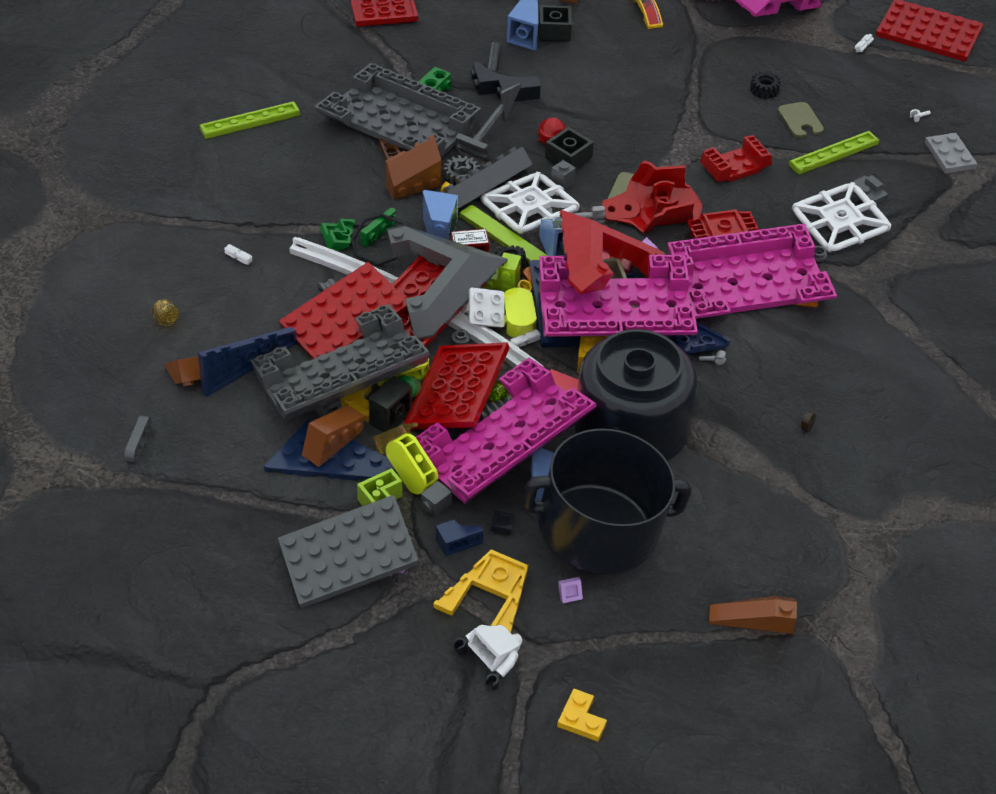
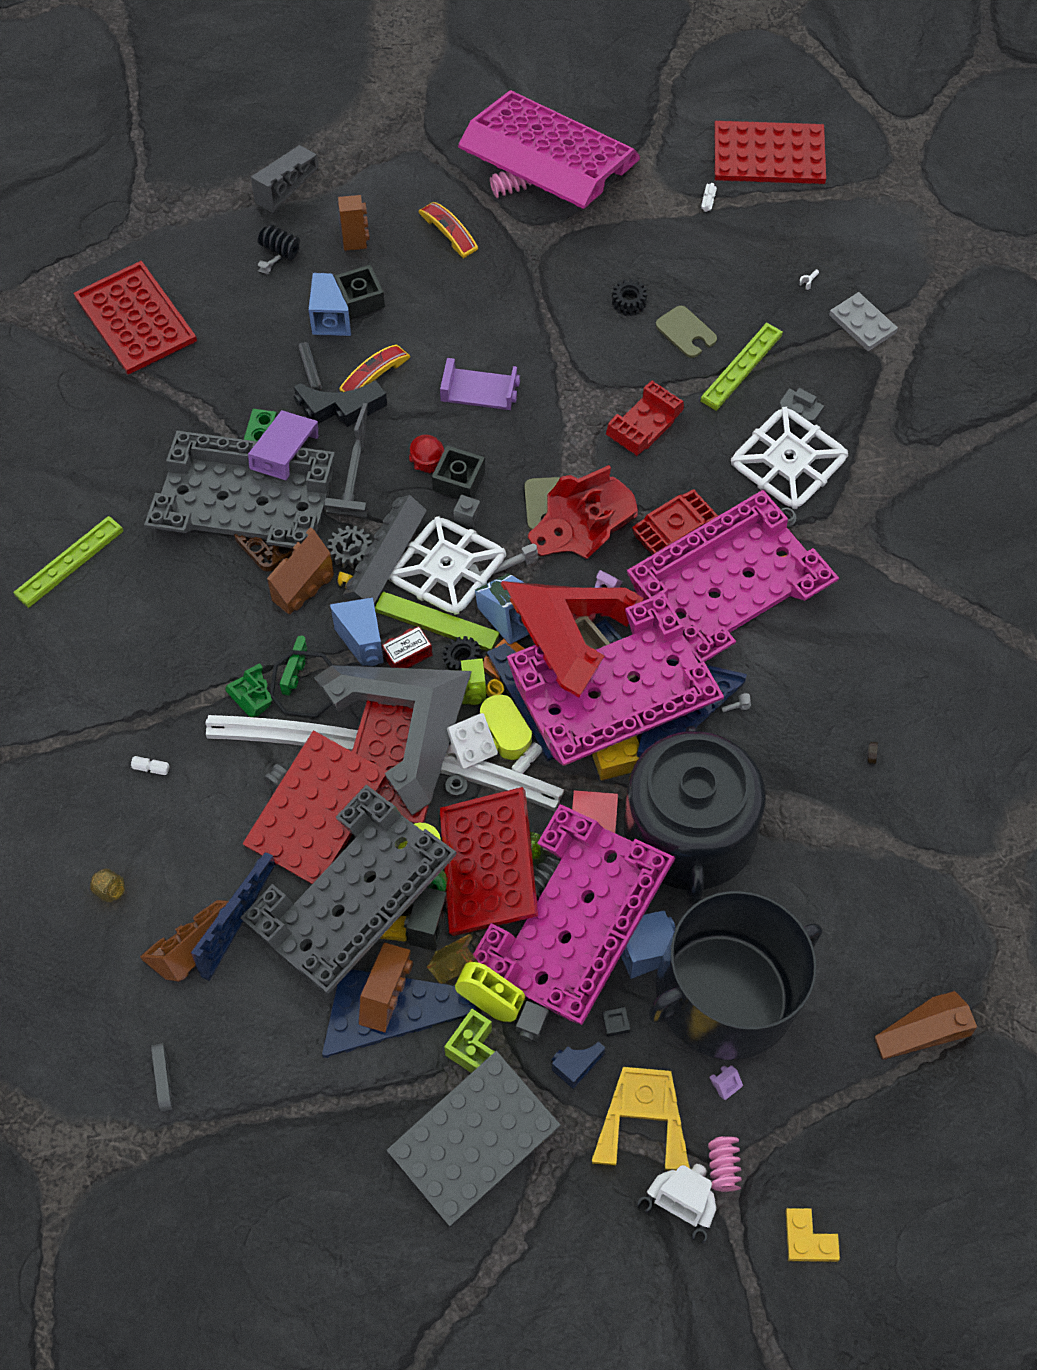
camera: 20 degrees left, 15 degrees up
(435, 92) = (281, 443): none -> medium lavender panel
(538, 640) = (723, 1164): none -> bright pink piece
(545, 69) = (374, 367): none -> slope
(614, 106) = (478, 387): none -> medium lavender panel

